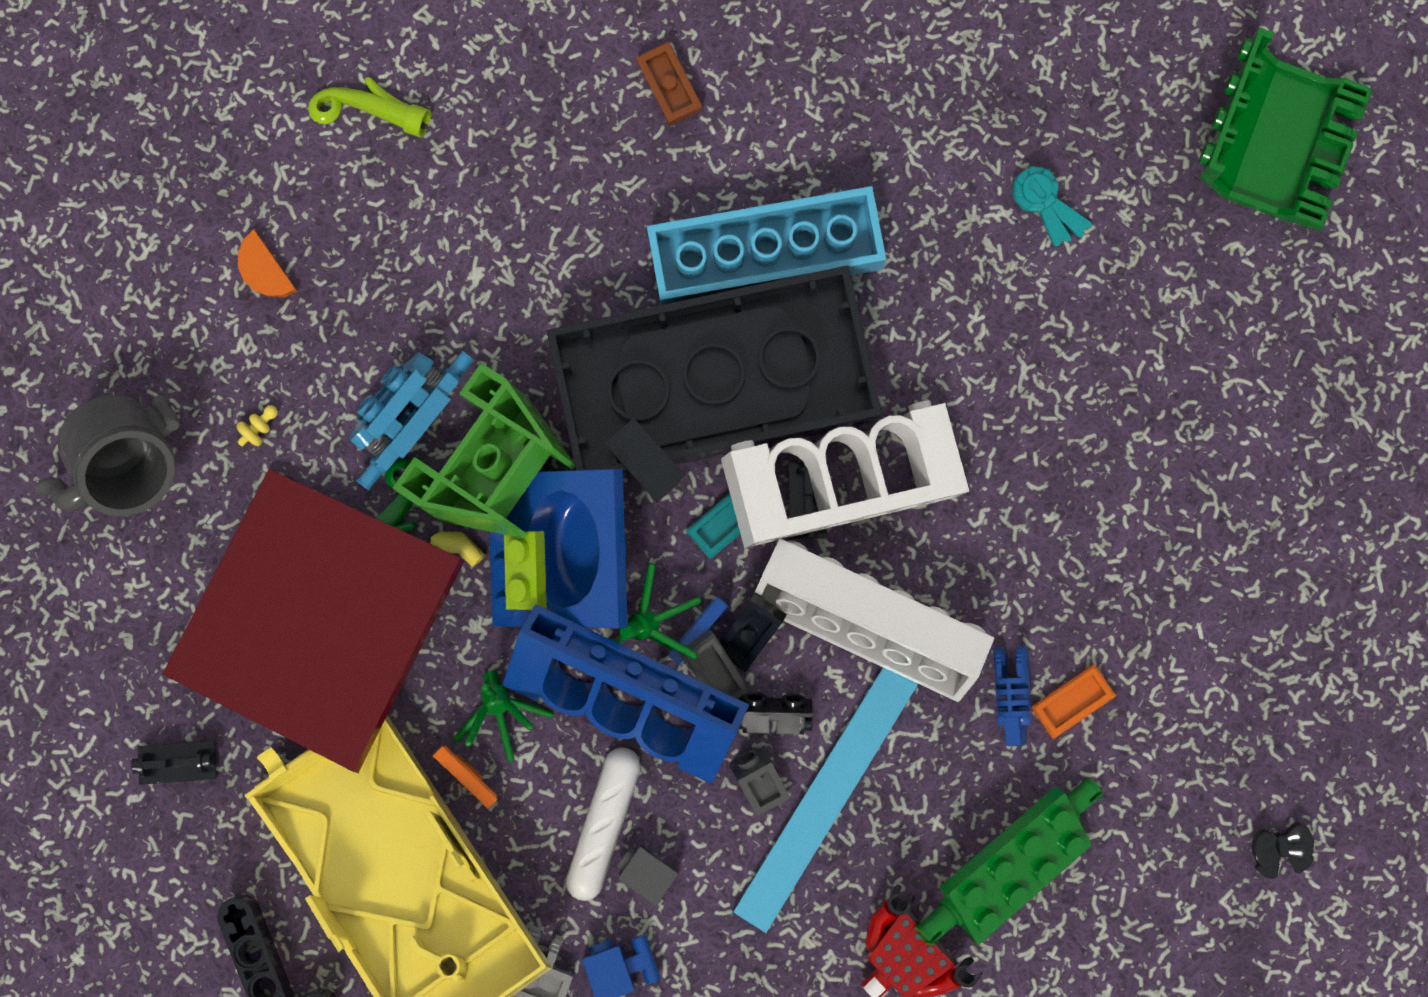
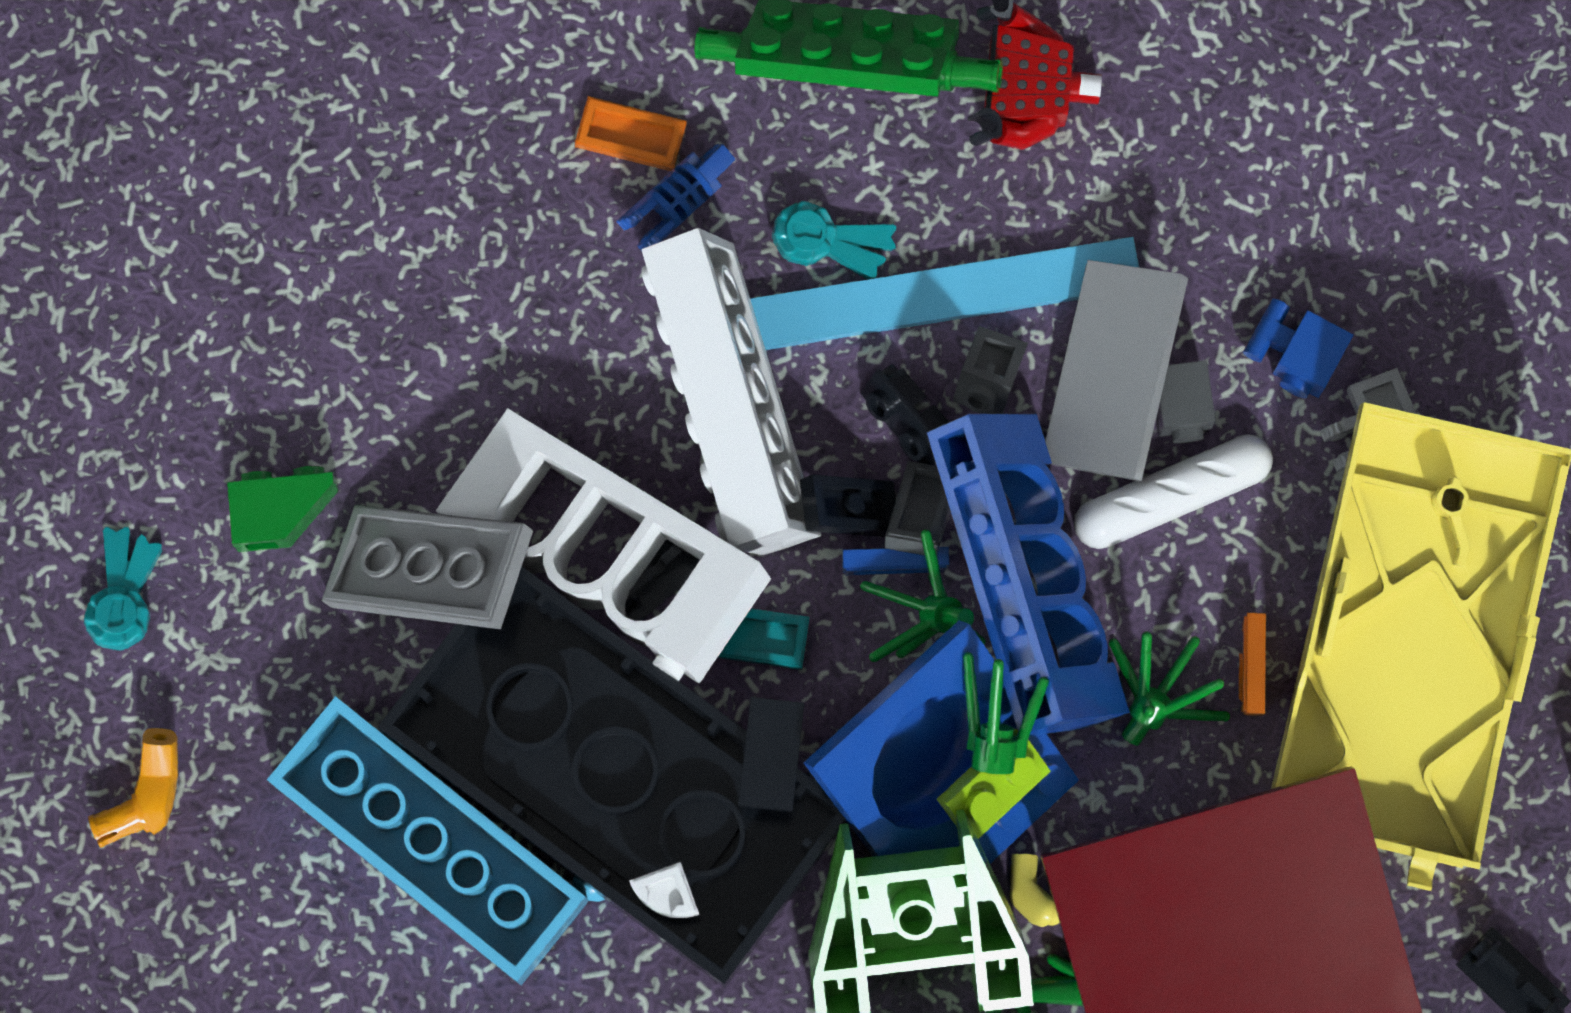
camera: 135 degrees left, 5 degrees down
(542, 585) = (993, 742): none -> green plant
(621, 340) = (666, 892): none -> white tile
(697, 850) = (1115, 369): none -> light grey tile
(915, 370) = (428, 566): none -> light grey tile
(919, 128) = (153, 793): none -> light orange arm
(927, 749) = (807, 235): none -> teal piece
(1021, 320) = (279, 509): none -> green slope

